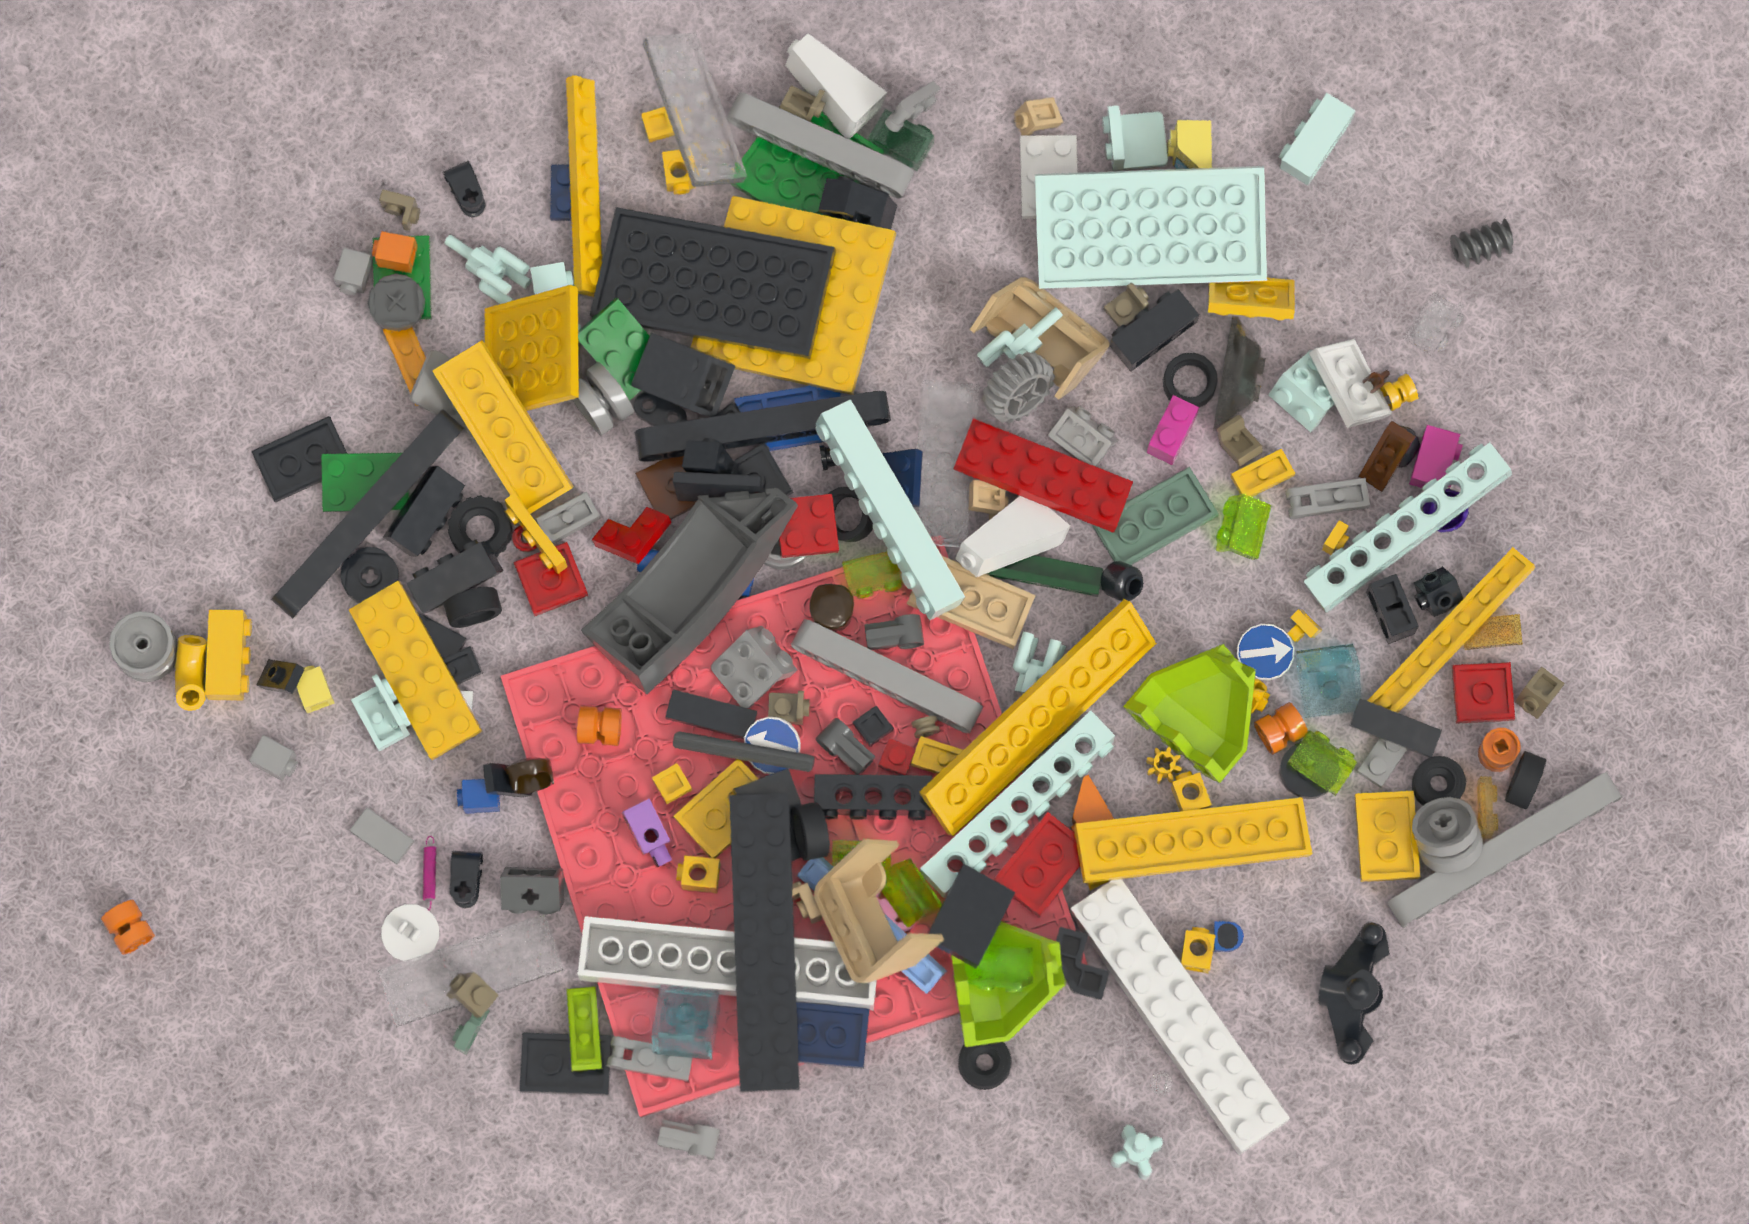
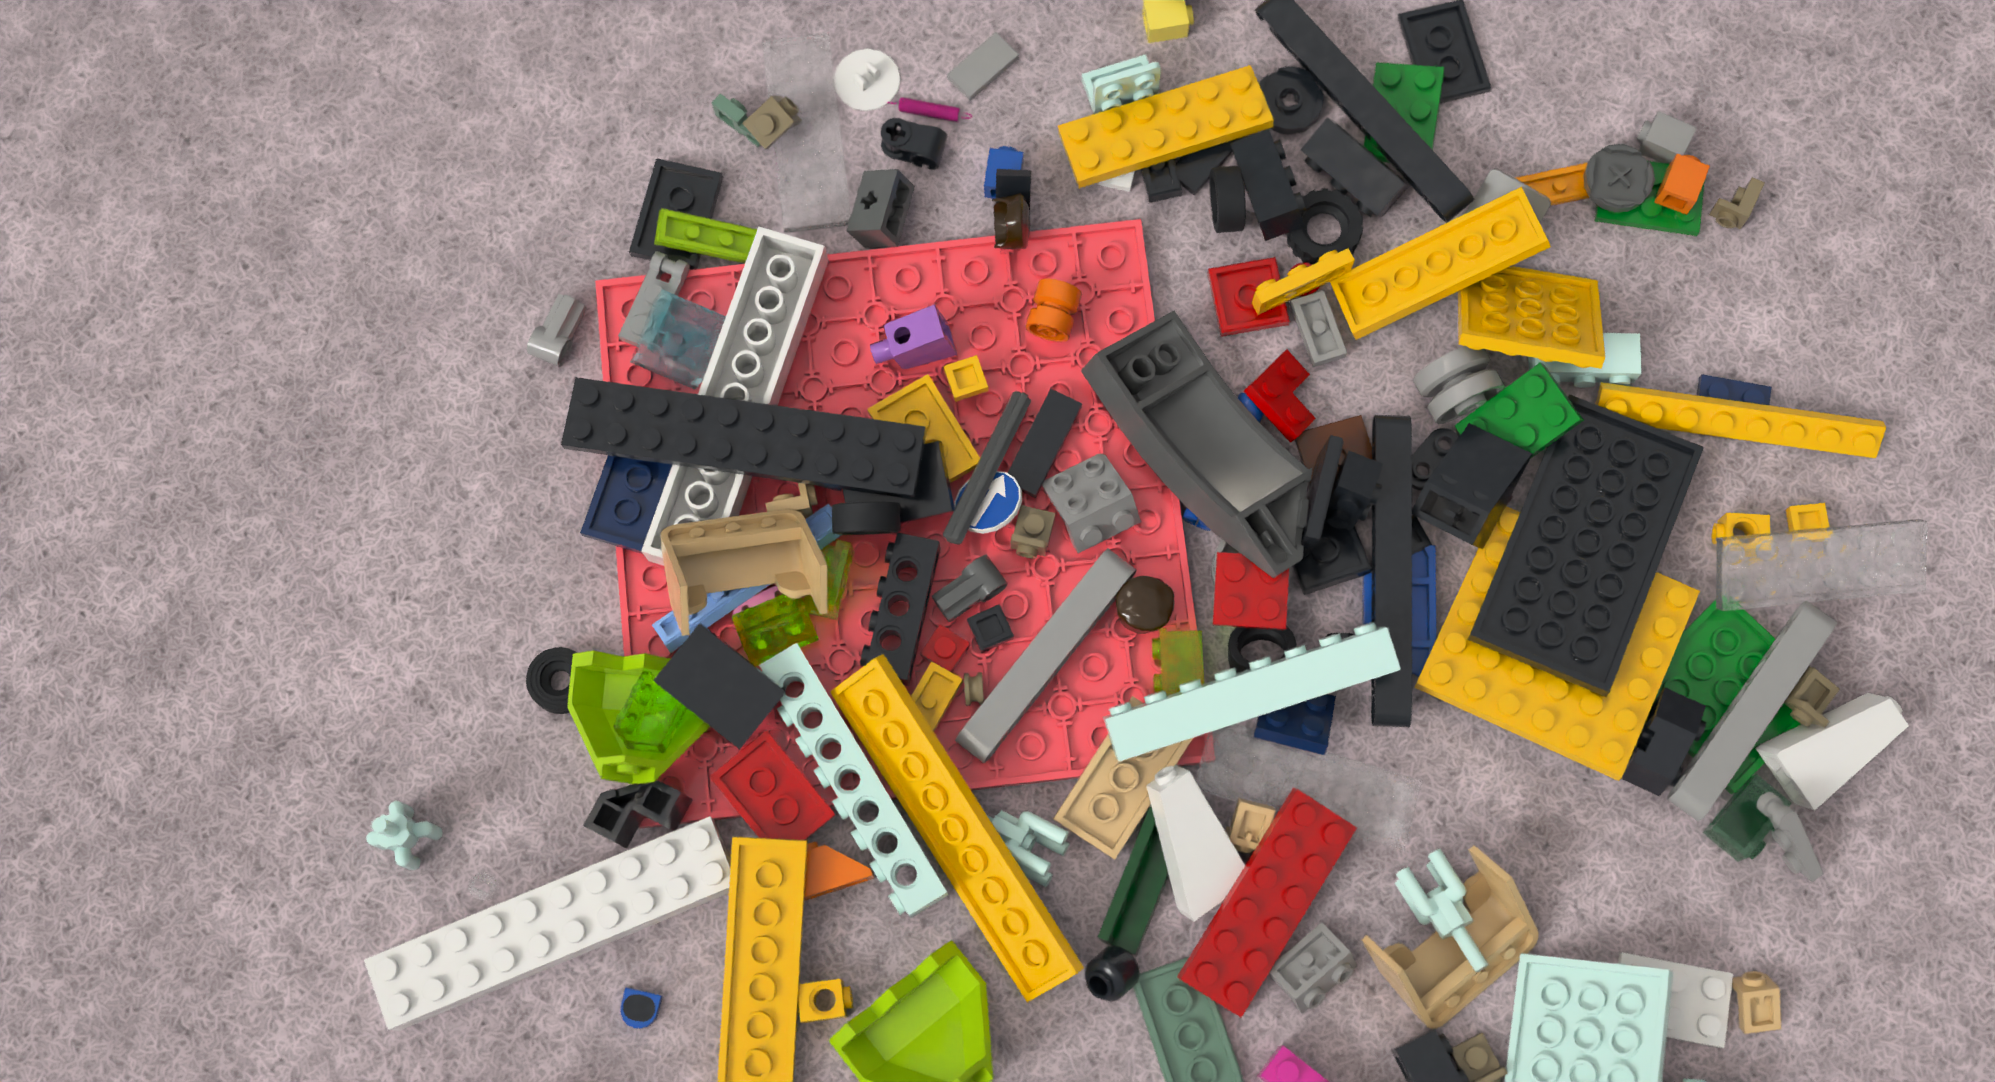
camera: 105 degrees right, 0 degrees up
(465, 186) = (1753, 283): black piece -> none
(491, 268) = (1647, 292): light aqua plant -> none
(708, 883) = (855, 405): yellow brick -> none
(901, 632) = (1098, 683): dark grey piece -> none
(1018, 387) = (1387, 892): light grey gear -> none
(1161, 772) = (859, 970): yellow gear -> none
(1191, 961) = (613, 961): yellow brick -> none

